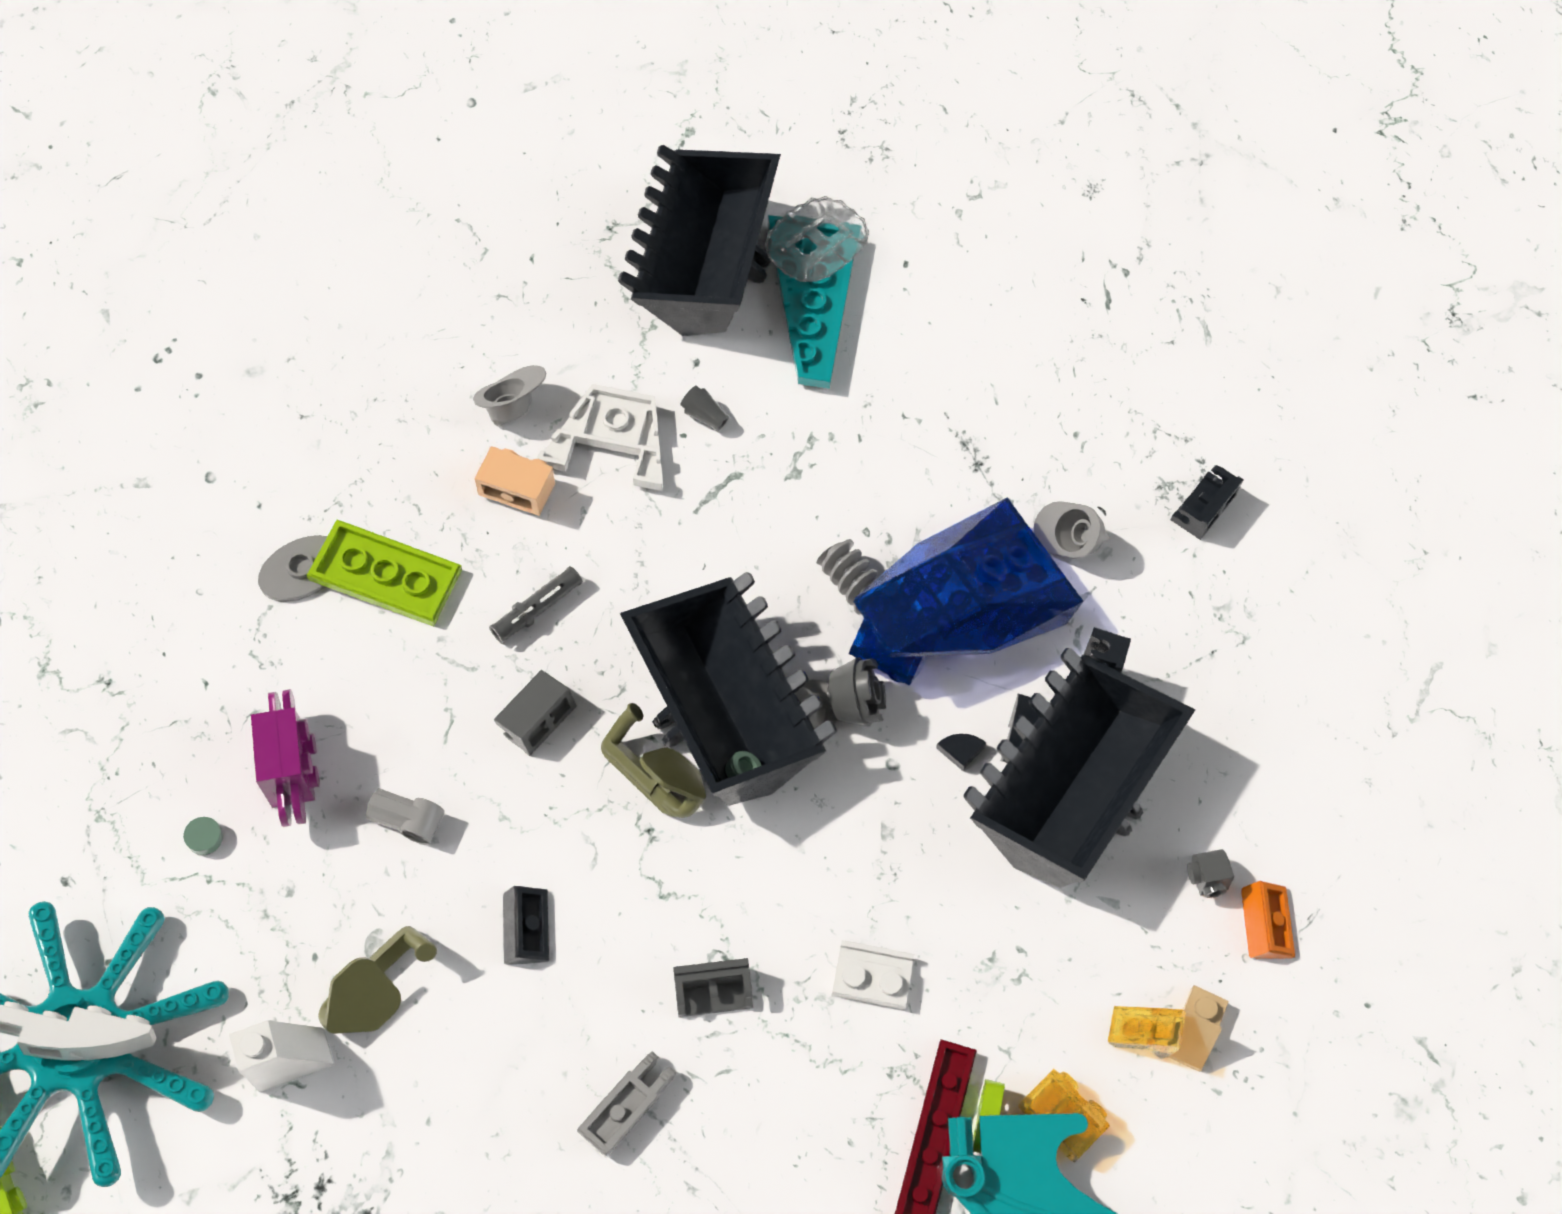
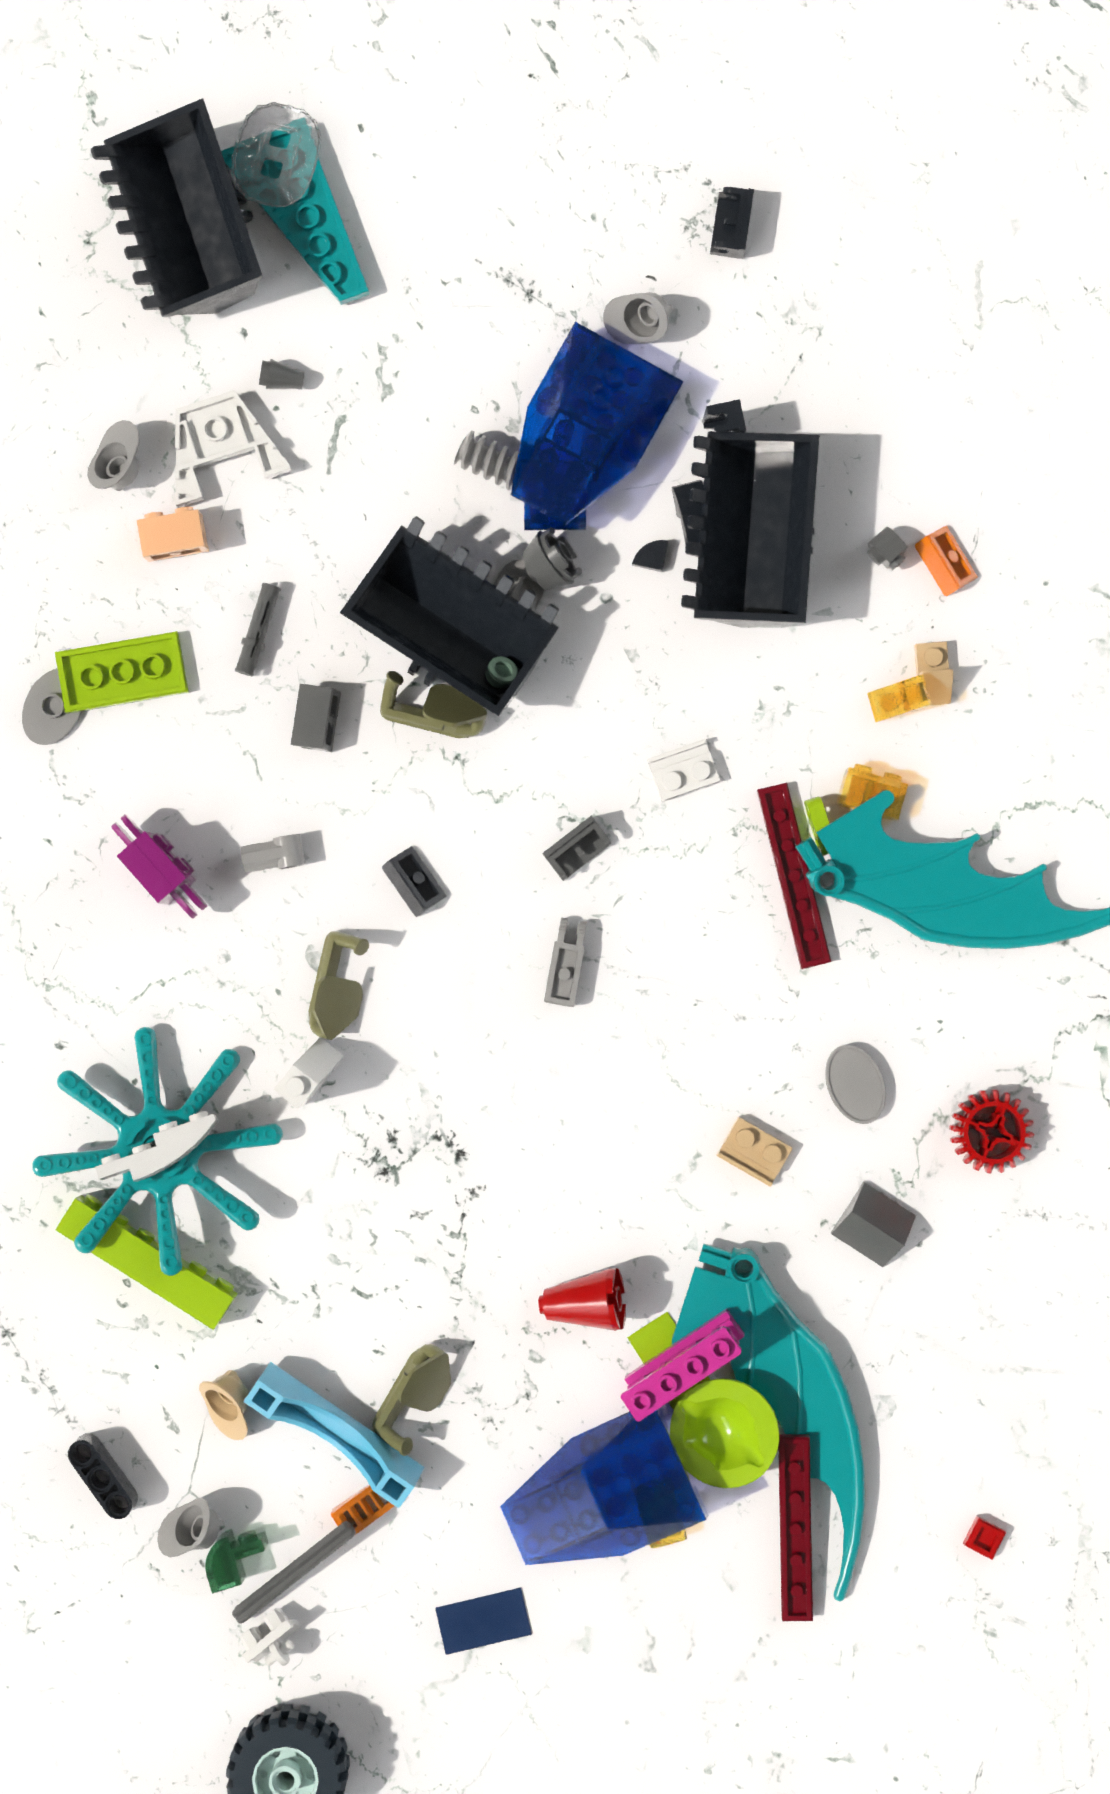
camera: 30 degrees left, 25 degrees up
(203, 835) = (135, 955): sand green tile -> none

